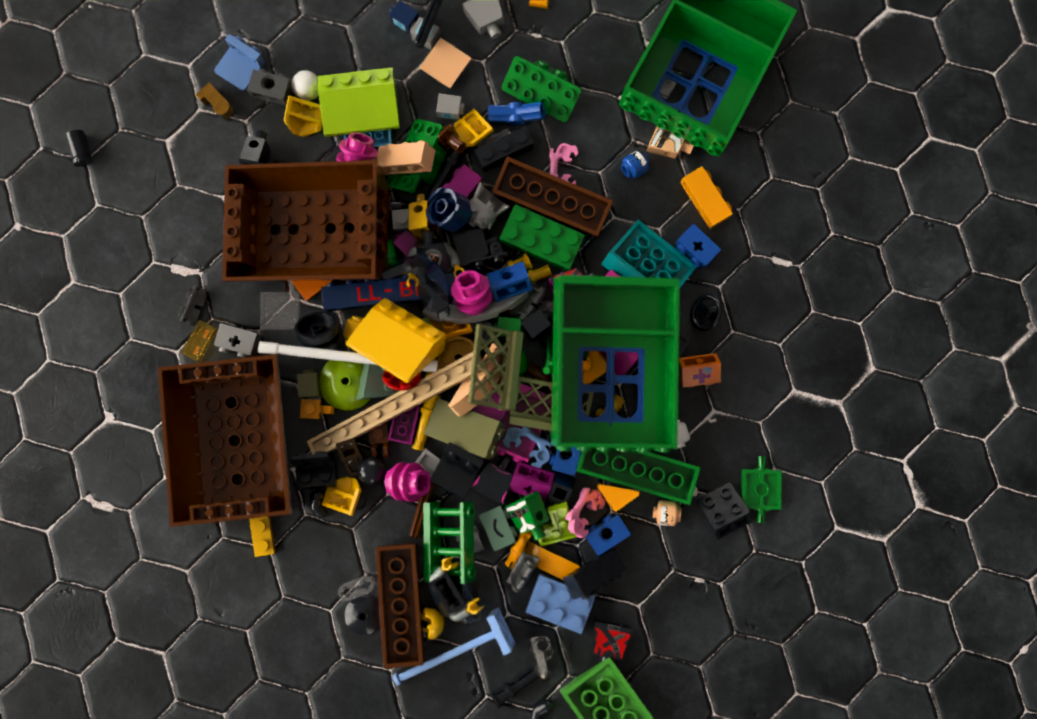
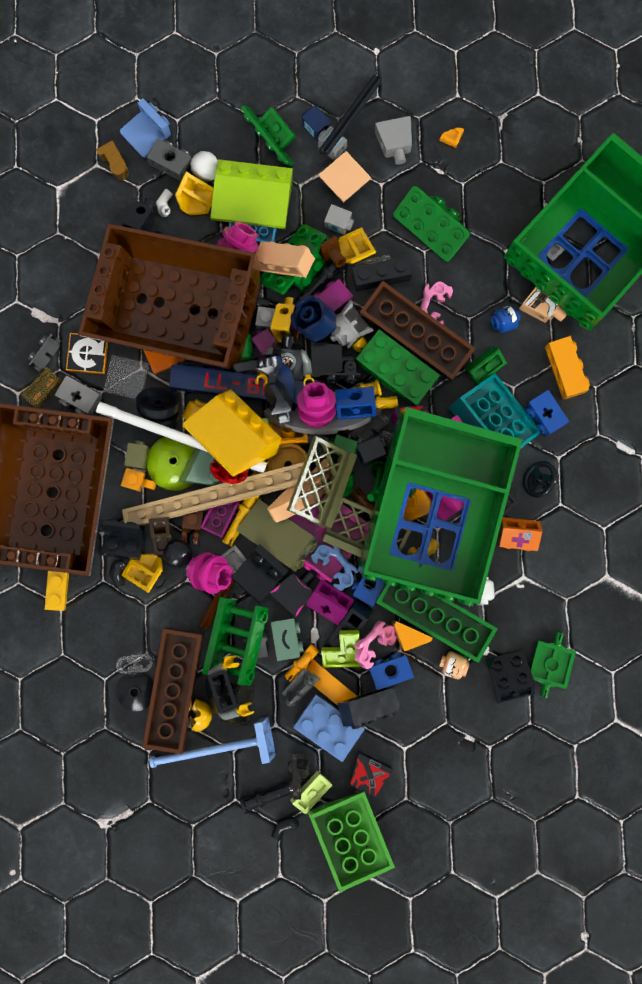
camera: 10 degrees right, 0 degrees up
(235, 298) = (86, 355): none -> tile
(273, 132) = (162, 203): none -> white arm
(365, 34) = (274, 130): none -> green bracket
(499, 223) = (359, 344): none -> yellow hinge
(516, 113) = (402, 241): blue piece -> none
(528, 514) = (319, 633): green torso -> none
(559, 670) = (312, 792): none -> yellowish green plate
(627, 214) = (485, 365): none -> green slope

